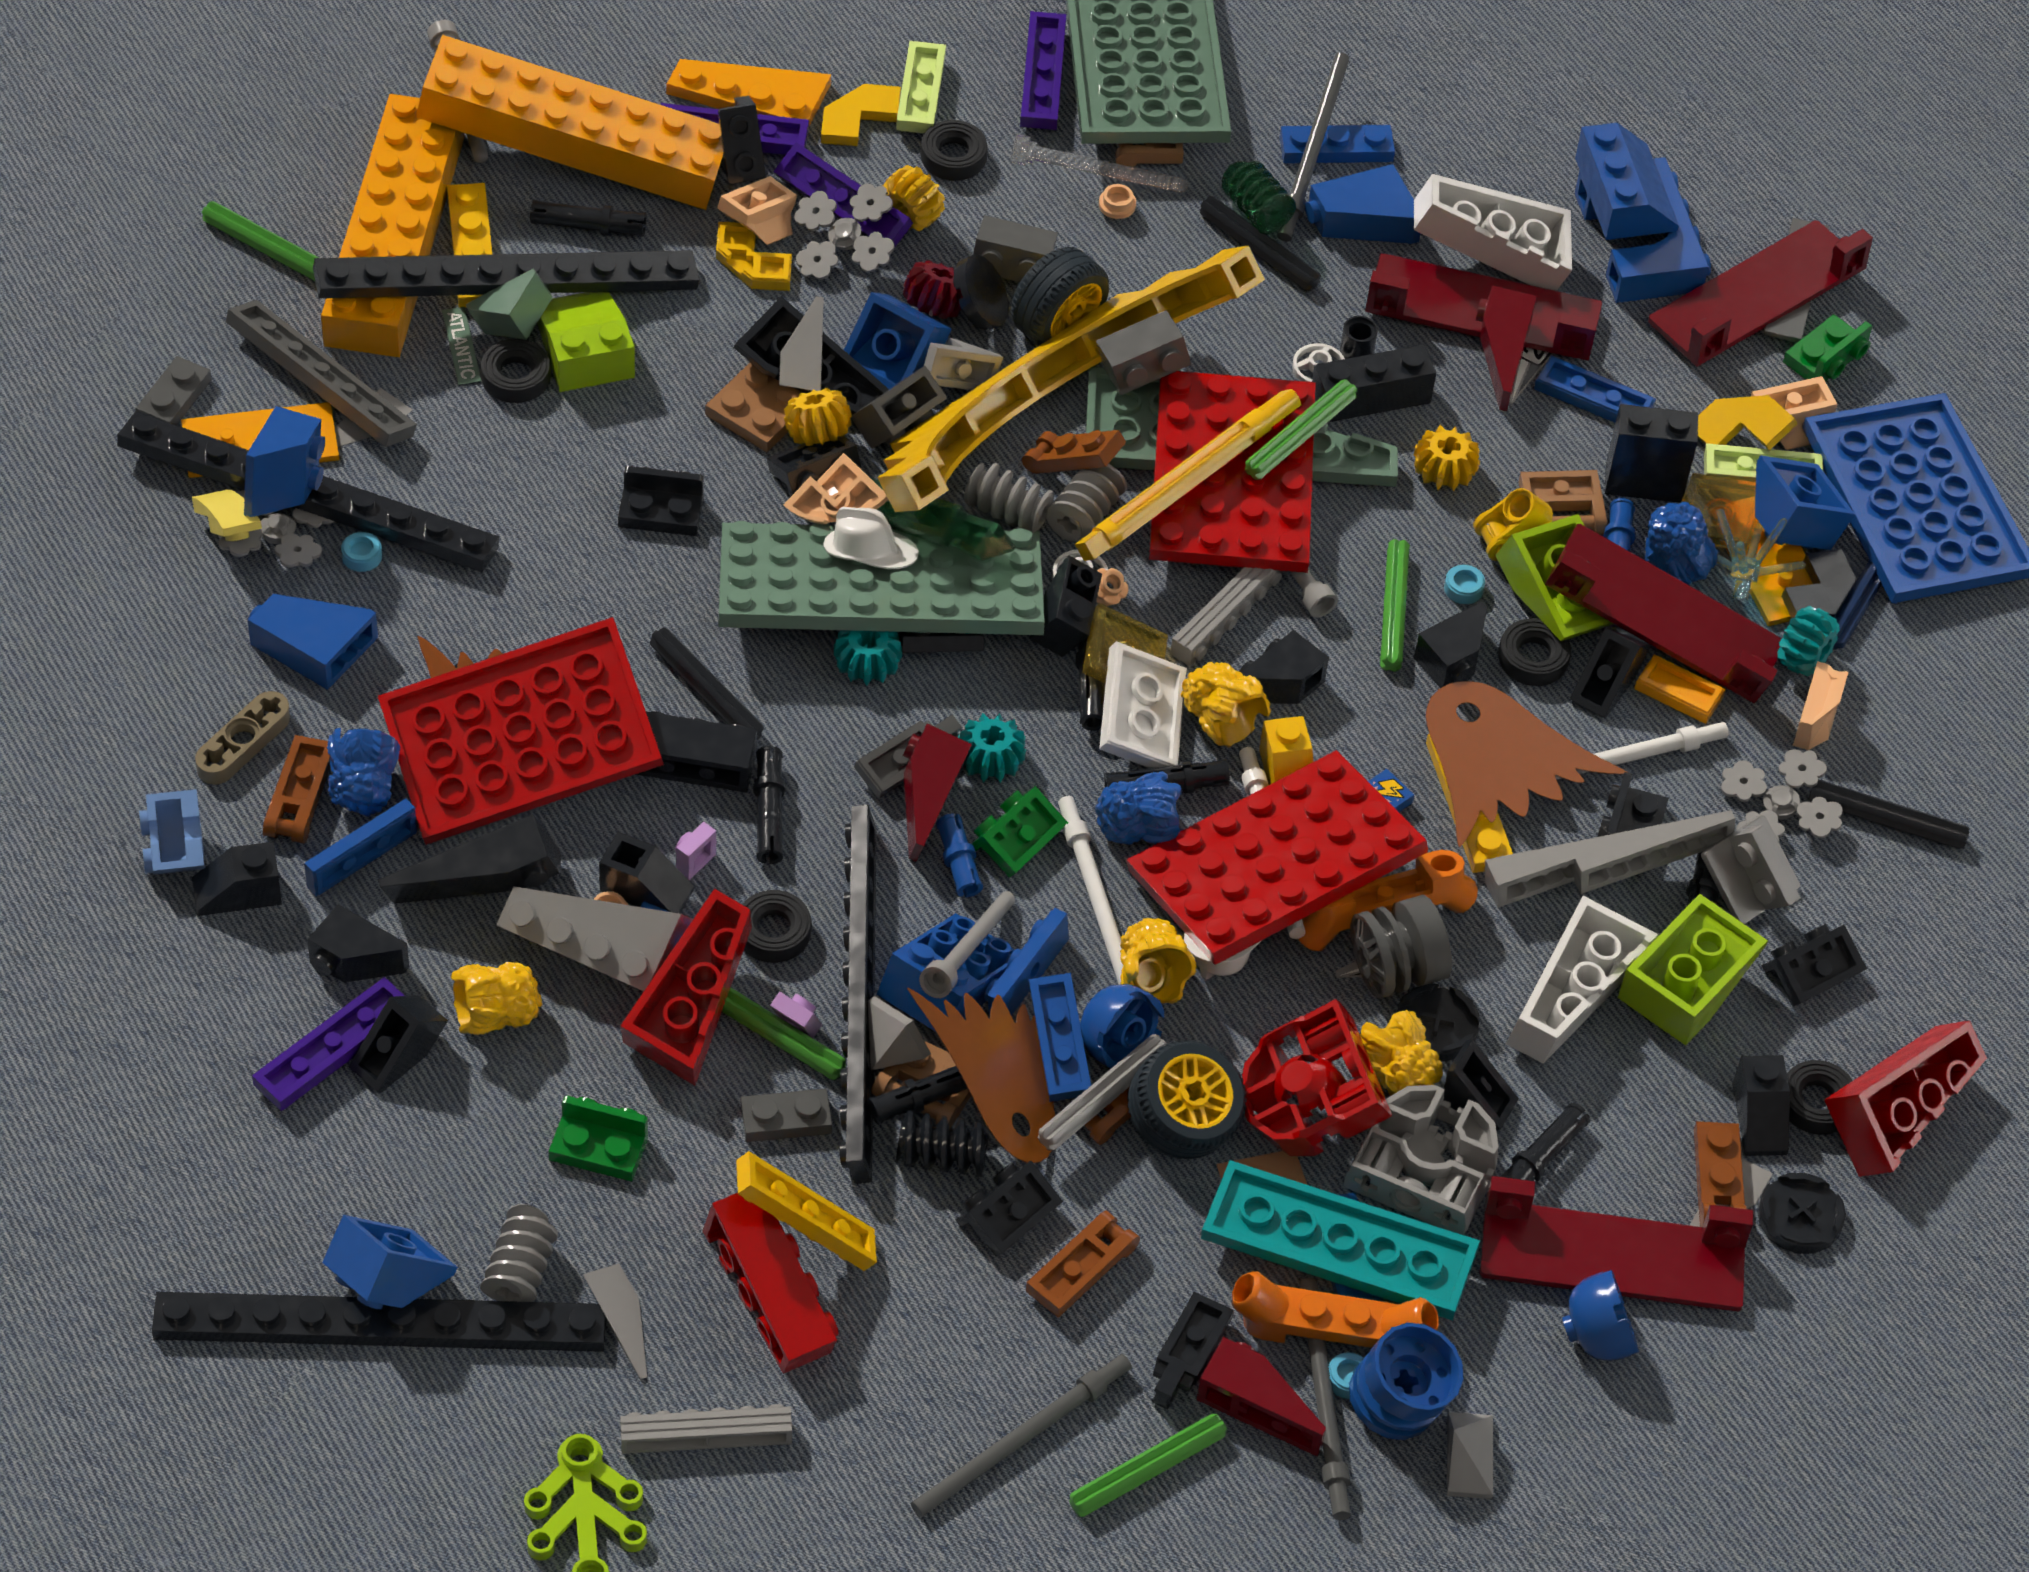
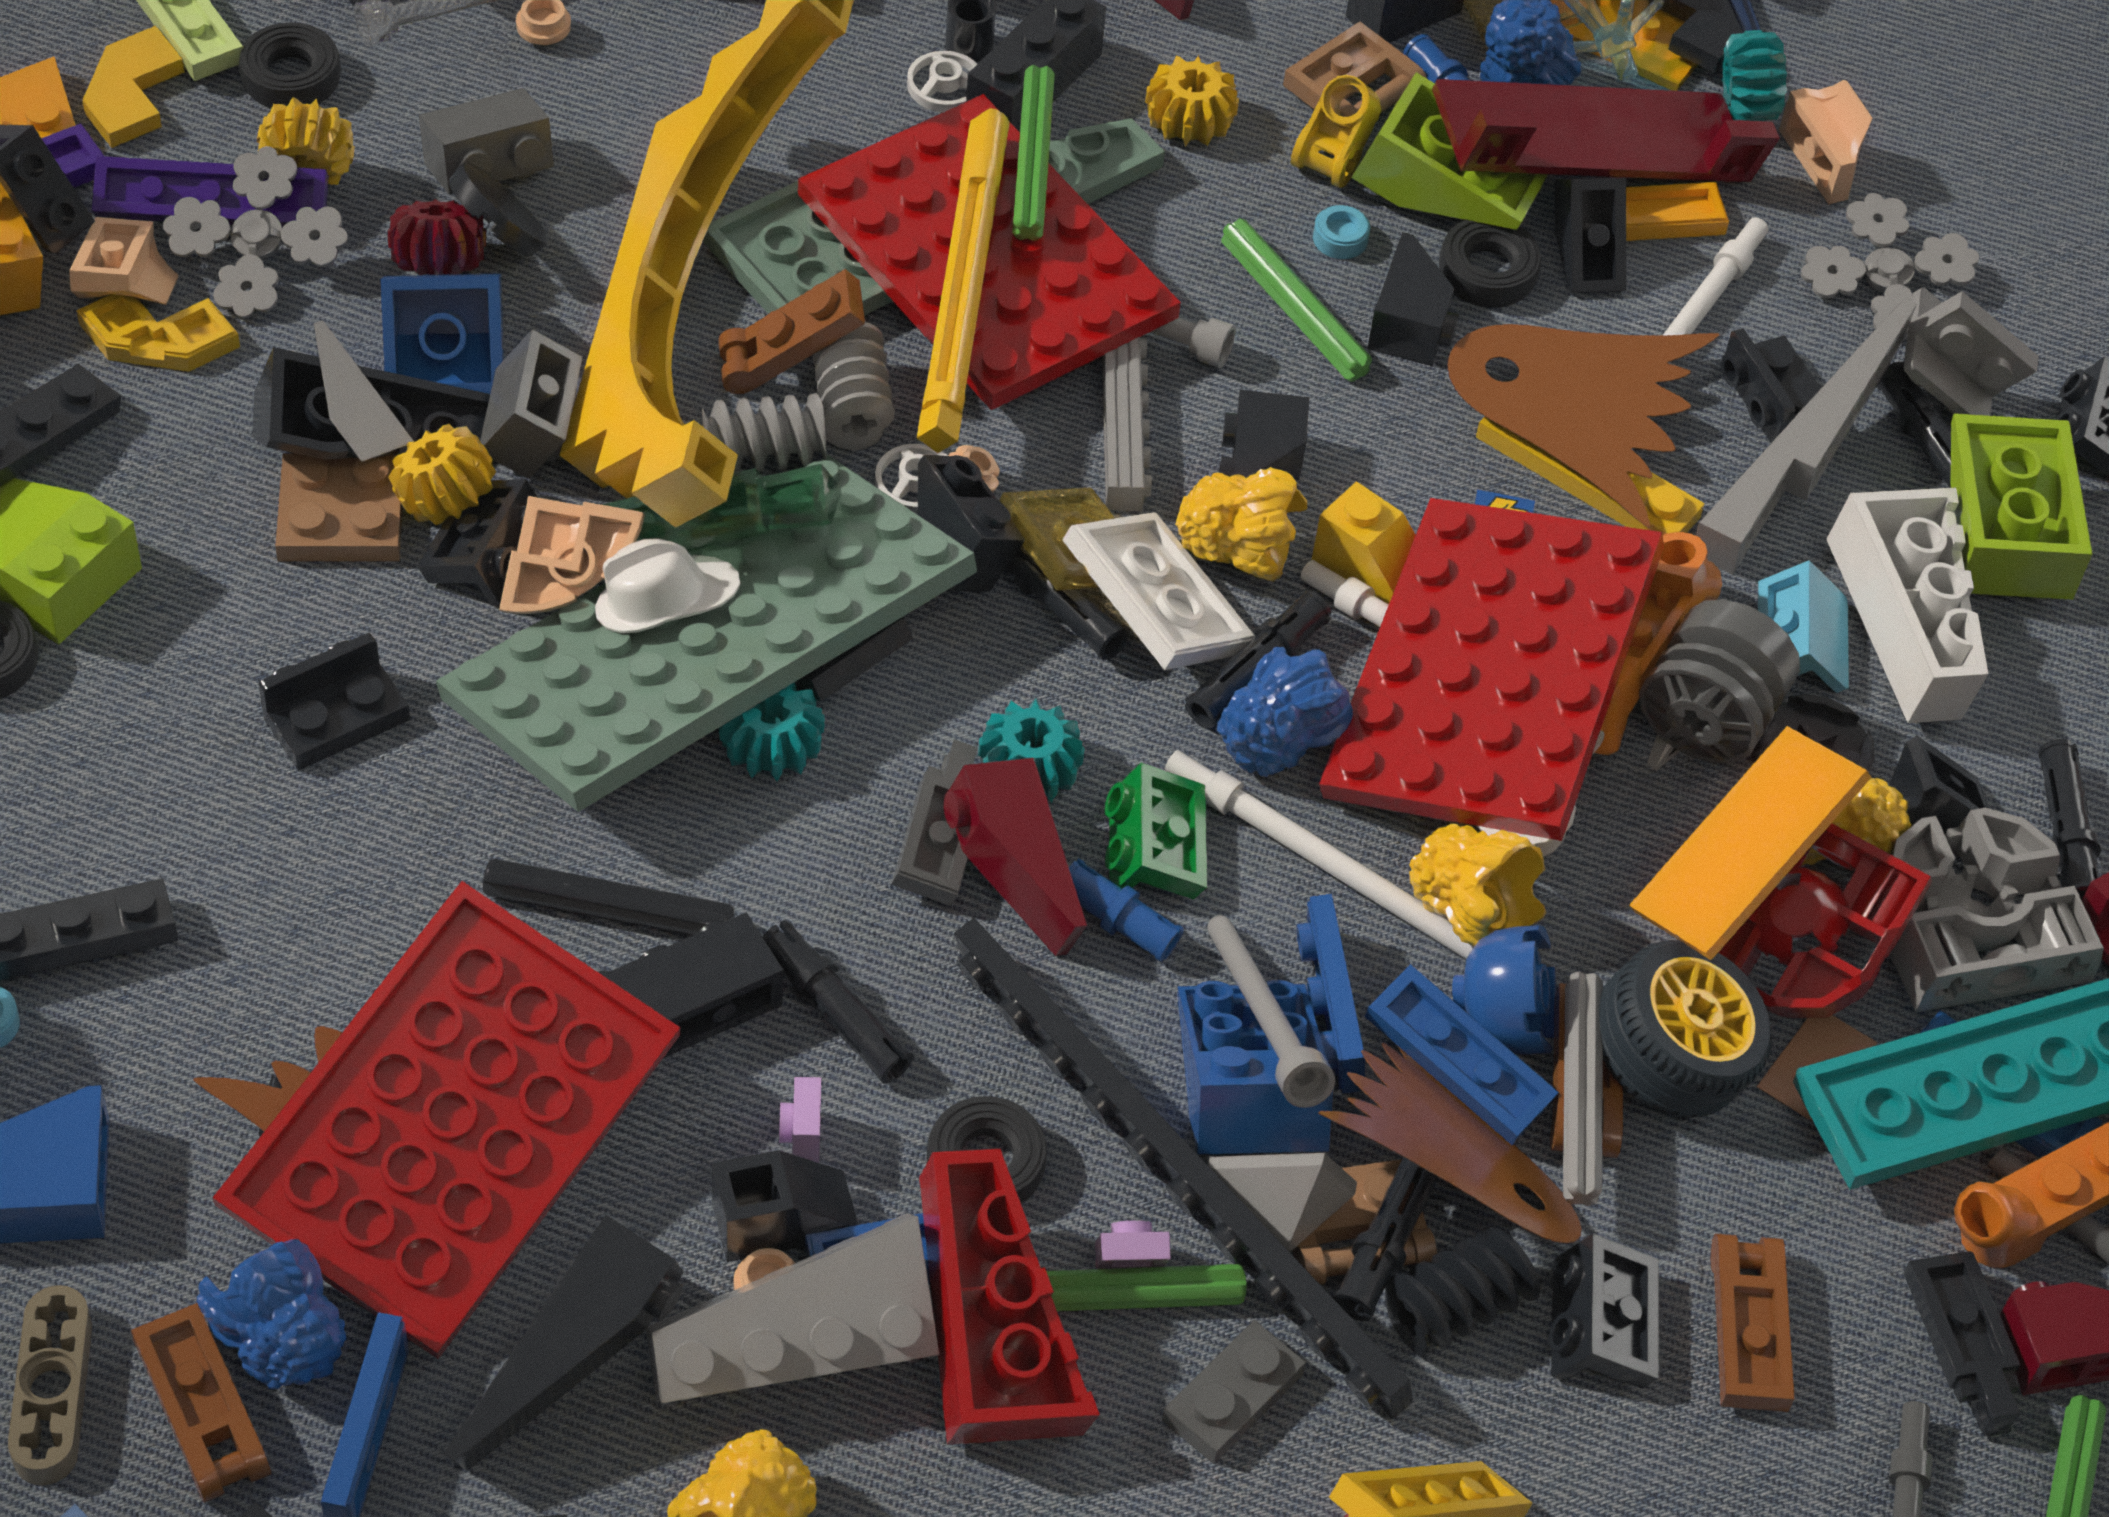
camera: 40 degrees left, 0 degrees up
(961, 364) = (558, 306): light grey slope -> none
(1058, 293) = (600, 159): black wheel -> none
(1143, 352) = (770, 167): dark grey brick -> none
(1296, 1021) = (1749, 842): none -> light orange piece
(1501, 959) = (1813, 617): none -> medium azure panel
(1893, 815) = (2003, 214): black axle -> none

